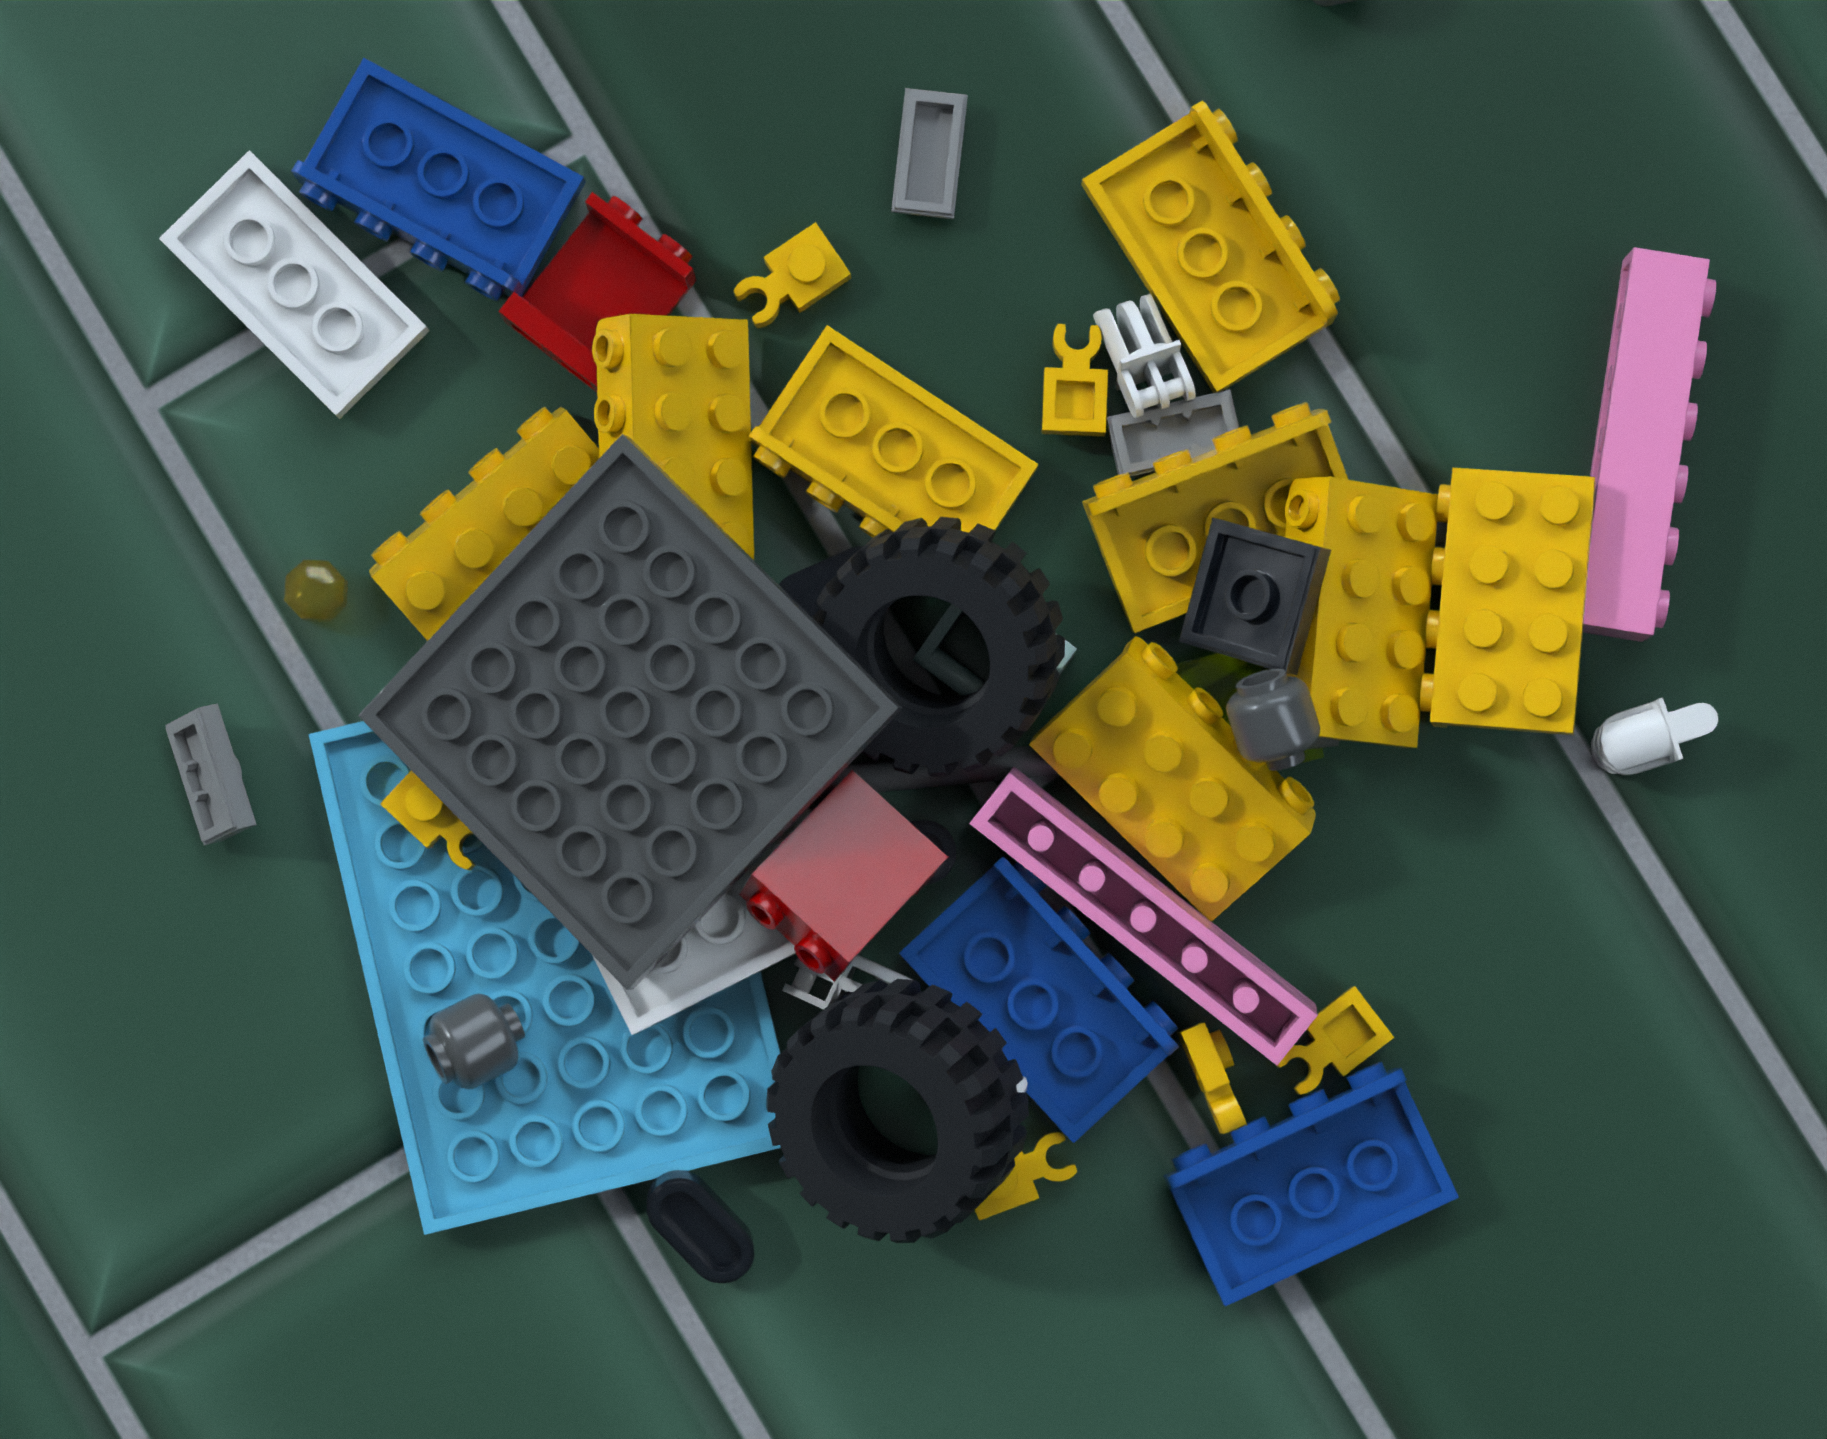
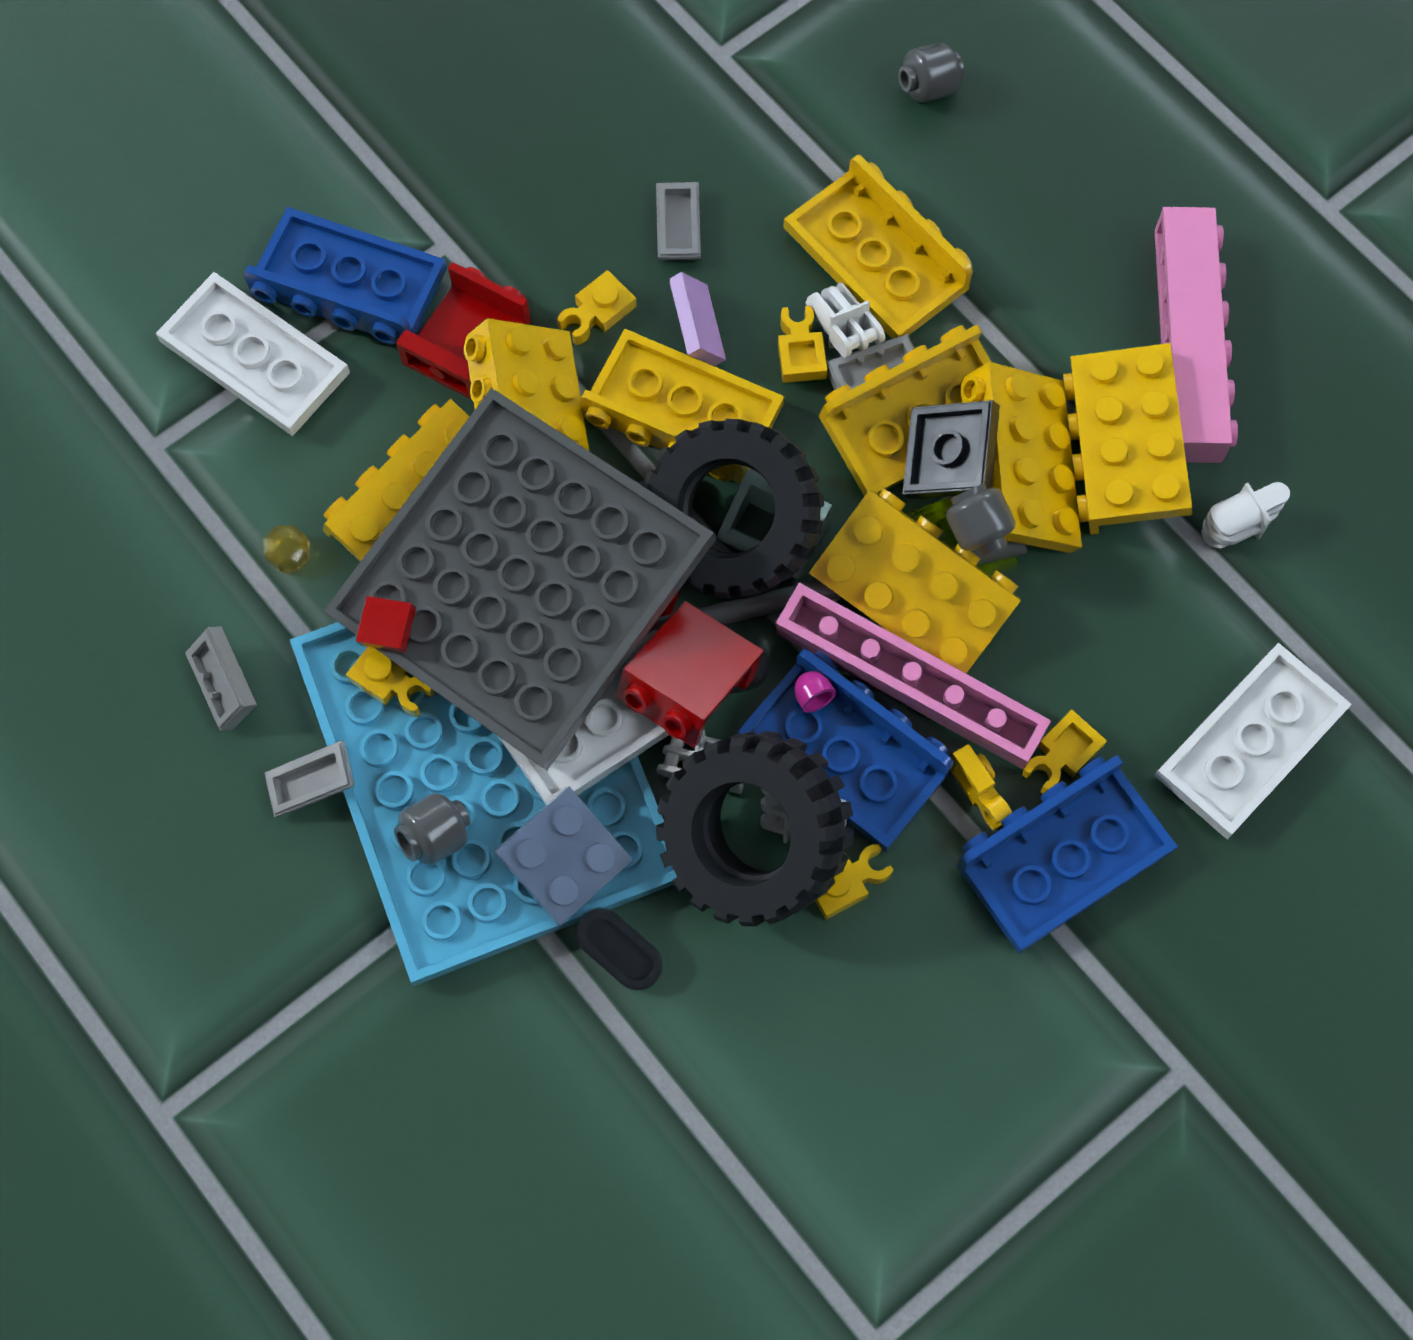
camera: 10 degrees left, 15 degrees down
(318, 939) = (309, 779): none -> light grey tile
(440, 756) = (386, 624): none -> red tile
(641, 1102) = (563, 856): none -> sand blue plate
(933, 322) = (697, 319): none -> lavender tile
(1008, 916) = (814, 691): none -> dark pink hinge
(1593, 1061) = (1252, 740): none -> white plate

